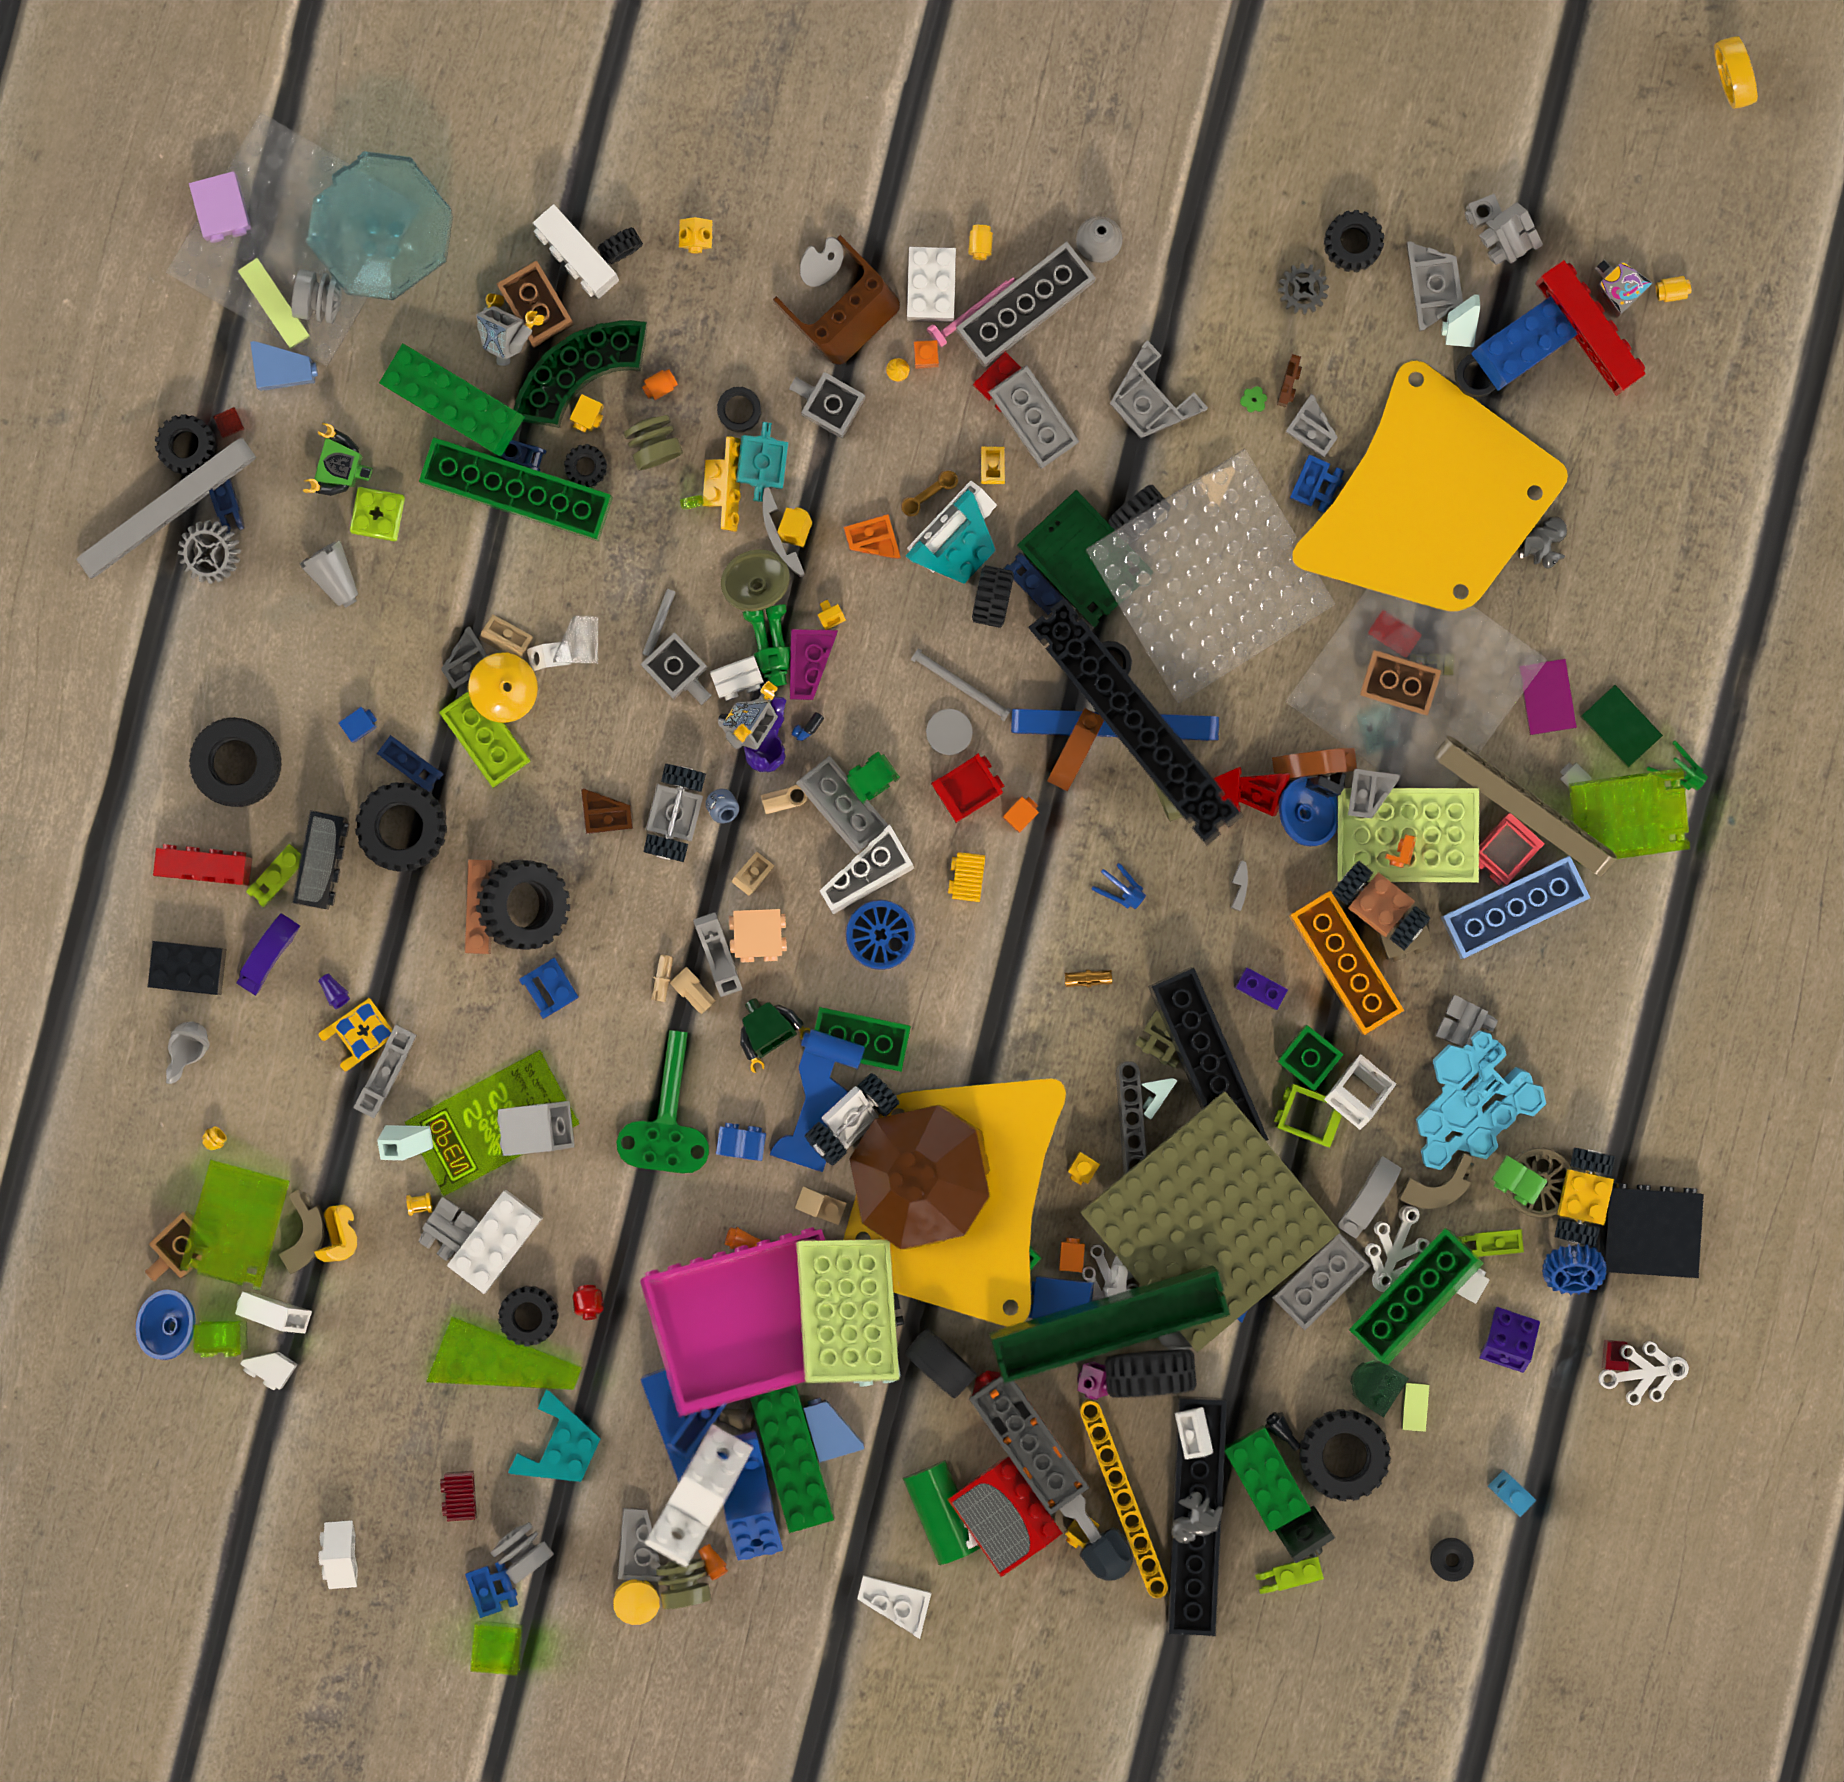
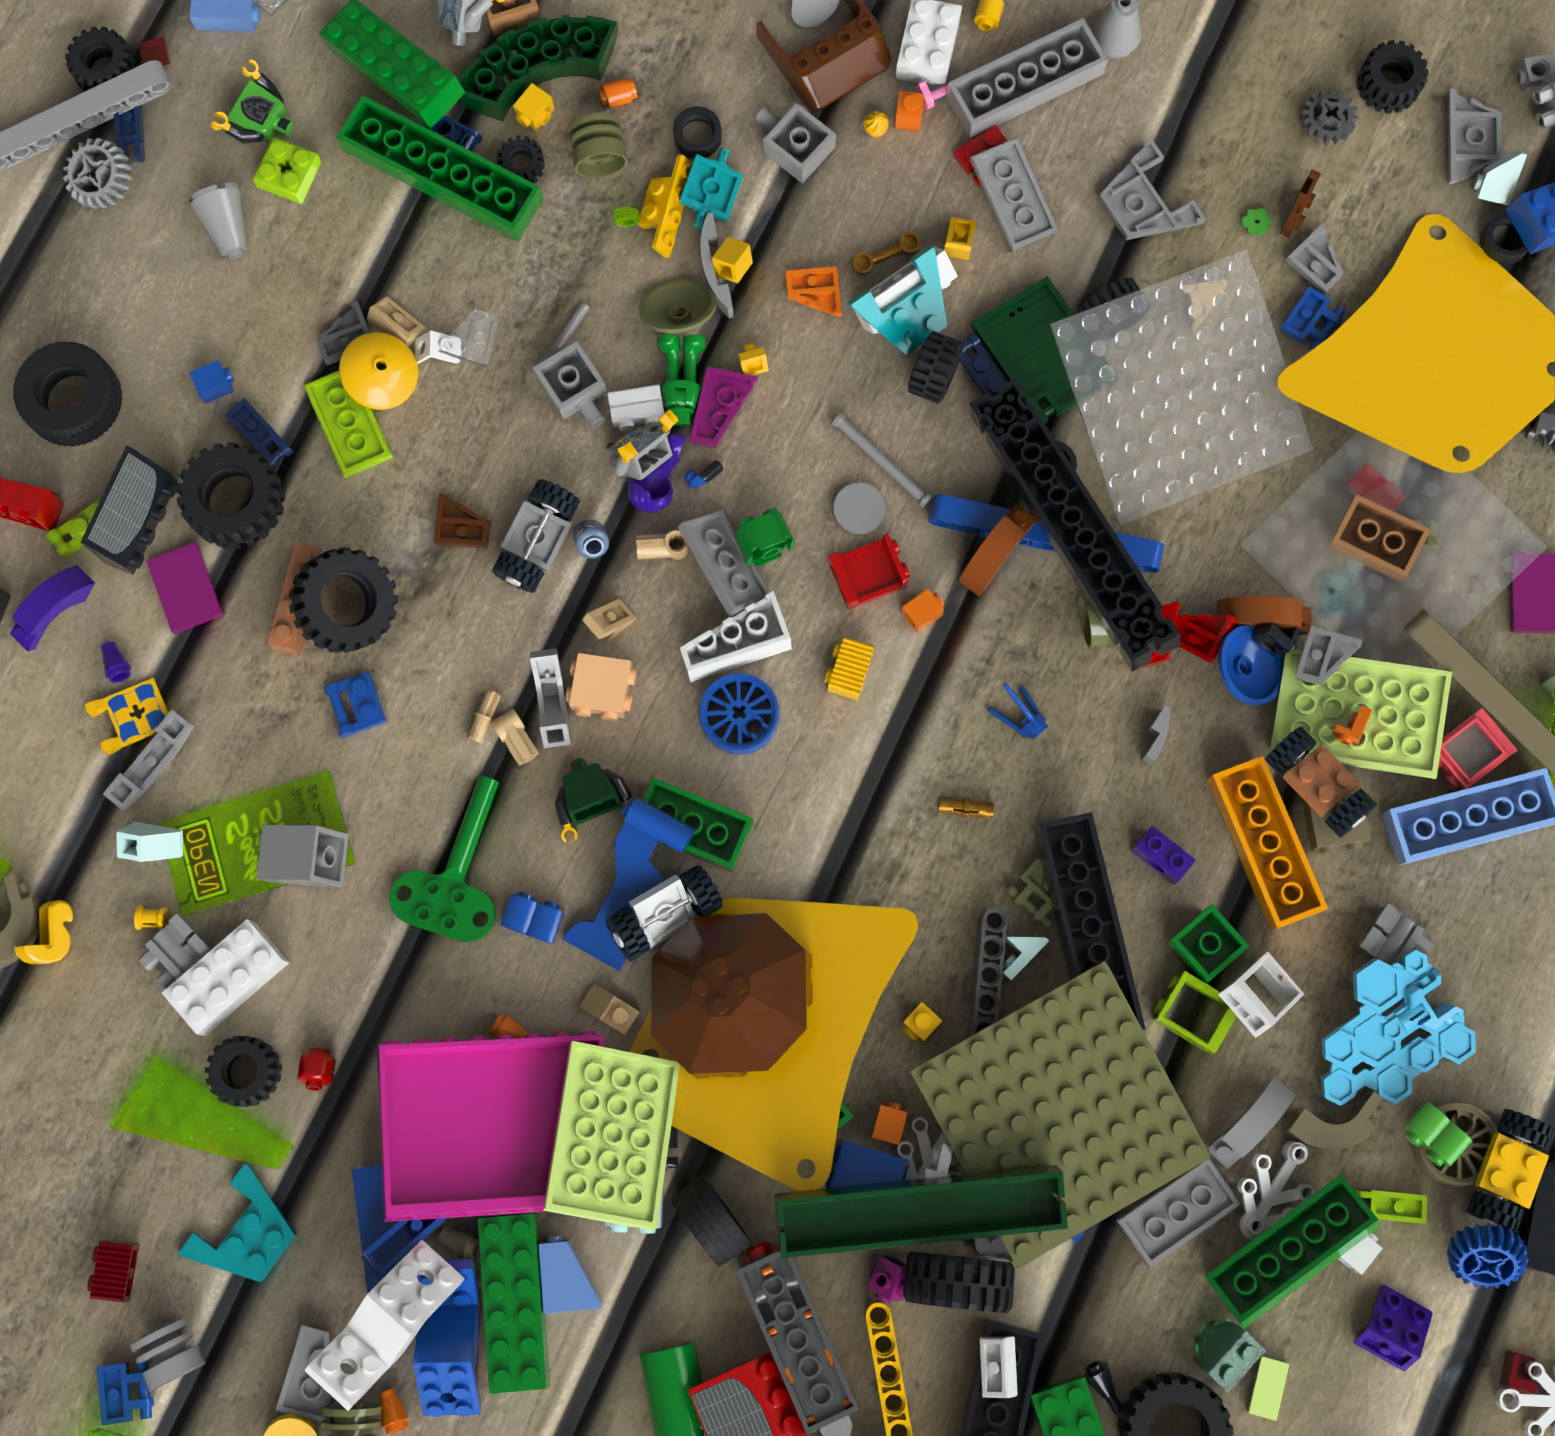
camera: 15 degrees right, 10 degrees down
(377, 913) = (185, 588): none -> magenta tile

